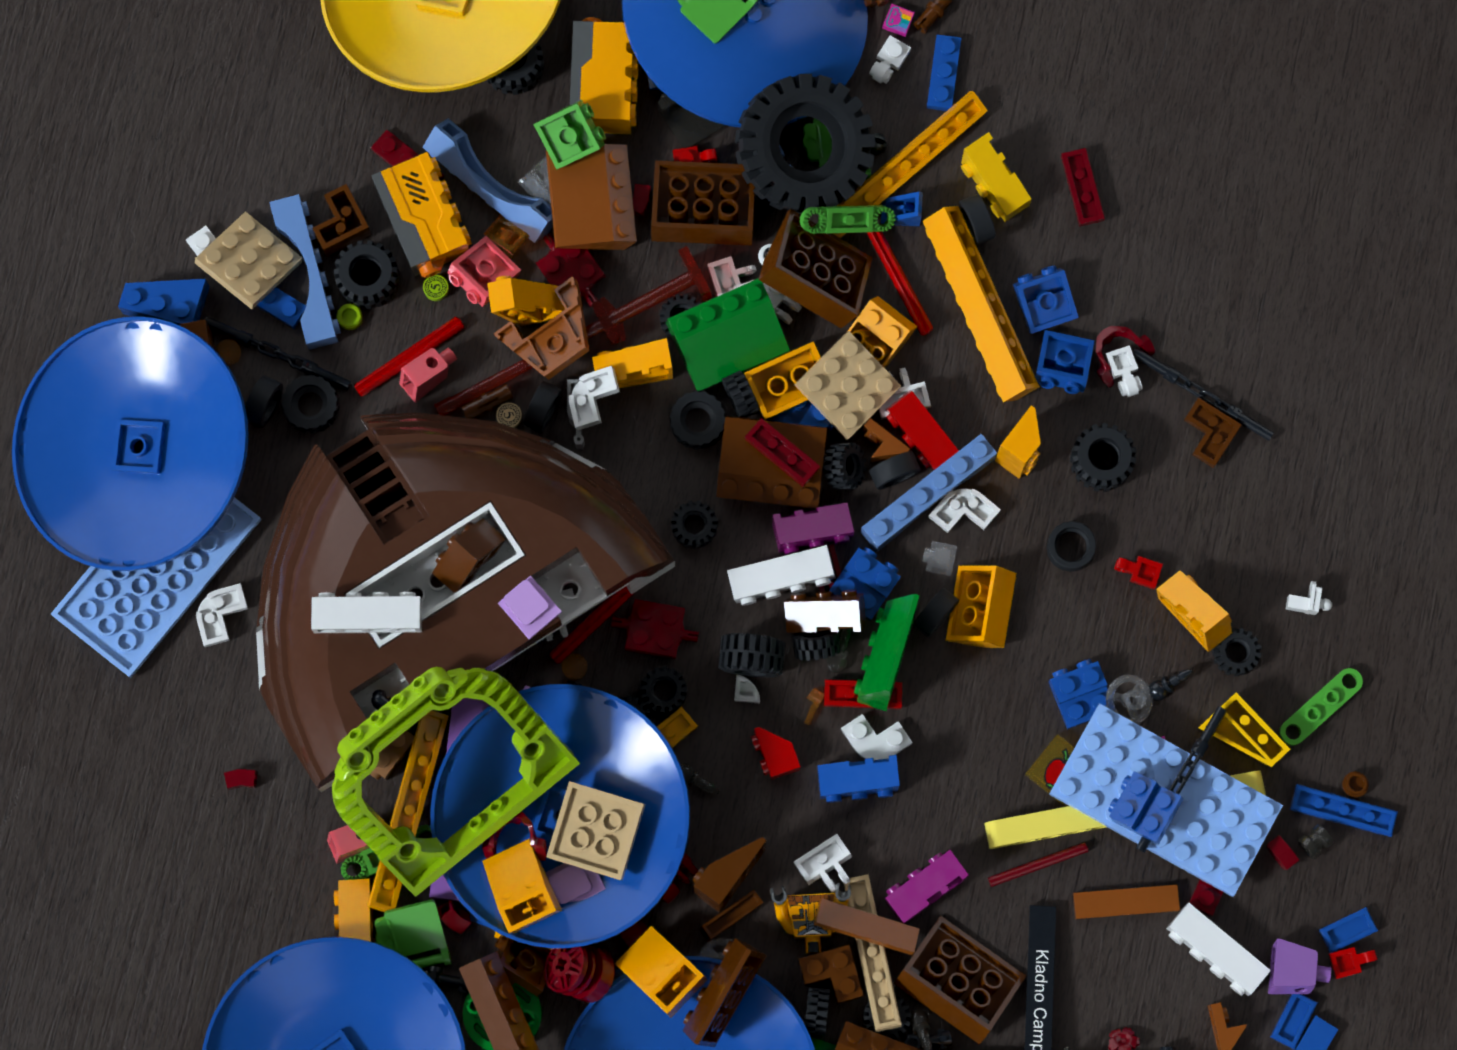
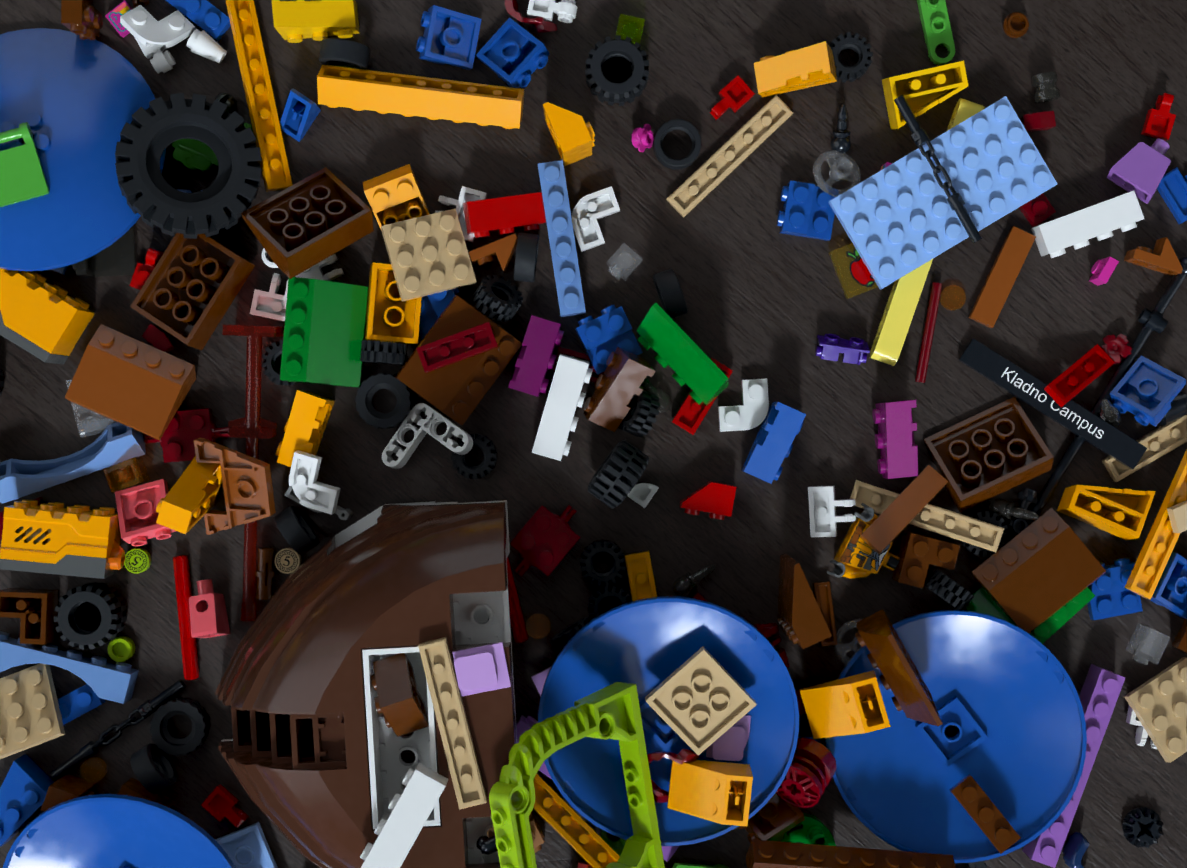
camera: 60 degrees left, 10 degrees up
(260, 478) = (221, 804): none -> red plate
(454, 917) = (694, 852): dark red piece -> none
(471, 608) = (452, 723): none -> tan tile
(570, 134) = (60, 370): bright green plate -> none
(698, 470) = (428, 426): none -> white beam
(816, 698) = (682, 437): clear orange hand -> none
(847, 219) = (279, 168): bright green plate -> none
(900, 282) = (354, 154): red axle -> none
(901, 45) = (165, 32): none -> white plate
(915, 101) = (206, 46): none -> white cone
(976, 785) = (853, 350): none -> dark purple hinge
(983, 606) = (686, 249): light orange slope -> none
(1058, 513) = (642, 138): none -> dark pink plate
(1078, 1018) = (1079, 375): none -> red plate
(1082, 869) = (952, 297): none -> clear orange piece
(1089, 599) = (729, 156): none -> tan tile
(1144, 807) = (946, 214): blue plate -> none
(1147, 449) = (630, 27): none -> clear neon green plate
(1185, 987) = (1103, 270): none -> dark pink plate
(1343, 810) = (1030, 48): blue tile -> none
(1348, 930) = (1131, 105): blue tile -> none

